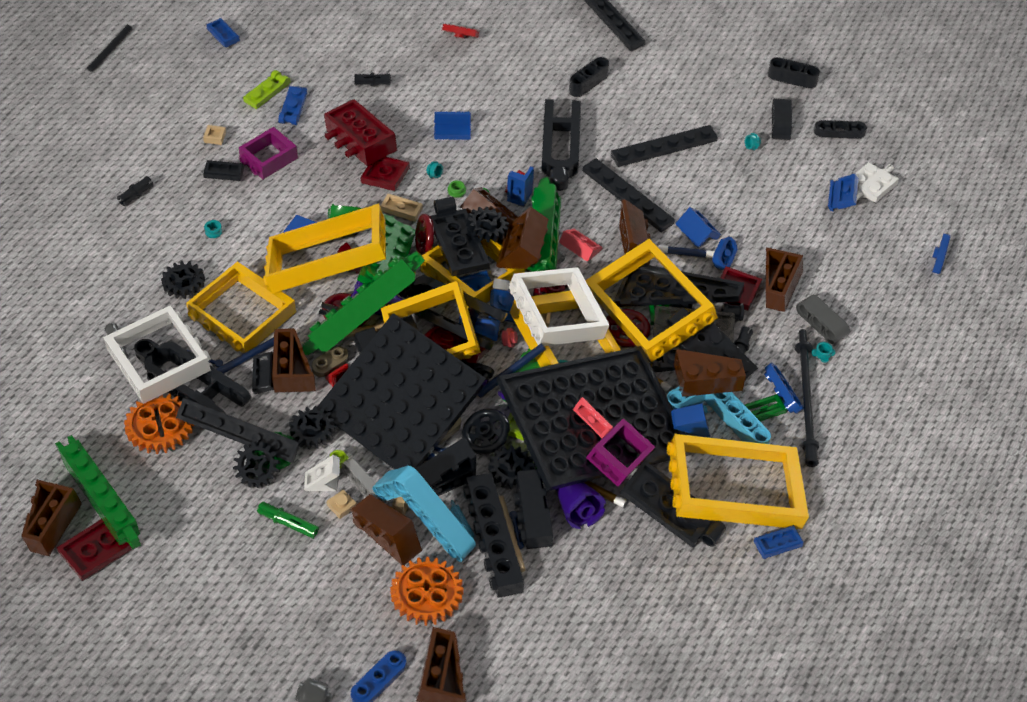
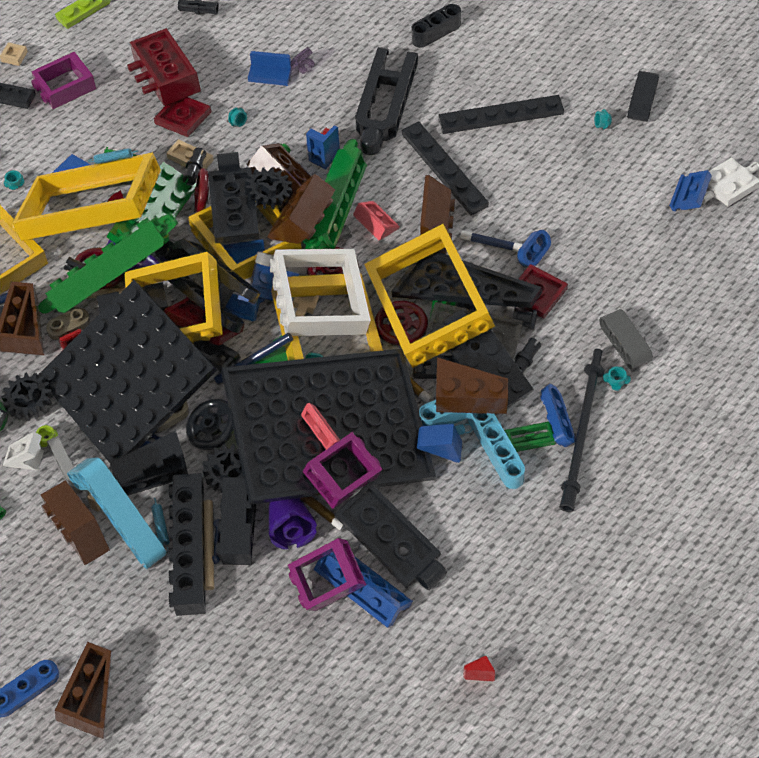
camera: 15 degrees right, 5 degrees up
(245, 243) = (13, 180): none -> teal plate
(293, 105) = (105, 28): blue plate -> none
(341, 211) = (113, 156): none -> medium azure piece
(341, 504) = (36, 485): tan plate -> none
(411, 214) = (193, 166): none -> black pin
(426, 607) = (99, 597): orange gear -> none
(456, 189) = (255, 141): bright green plate -> none
(479, 115) = (301, 59): none -> clear purple tile
(509, 337) = (266, 319): coral plate -> none
(600, 550) = (348, 566): none -> magenta window
(654, 549) = (374, 599): none -> blue fence
(697, 227) = (512, 214): blue panel -> none
(733, 511) = (461, 556): yellow window -> none
(777, 605) = (479, 670): none -> red slope
(778, 542) = (503, 596): blue plate -> none
(782, 277) = (589, 285): reddish brown wedge -> none
(793, 72) = (672, 42): black beam -> none
(826, 132) = (703, 108): black beam -> none

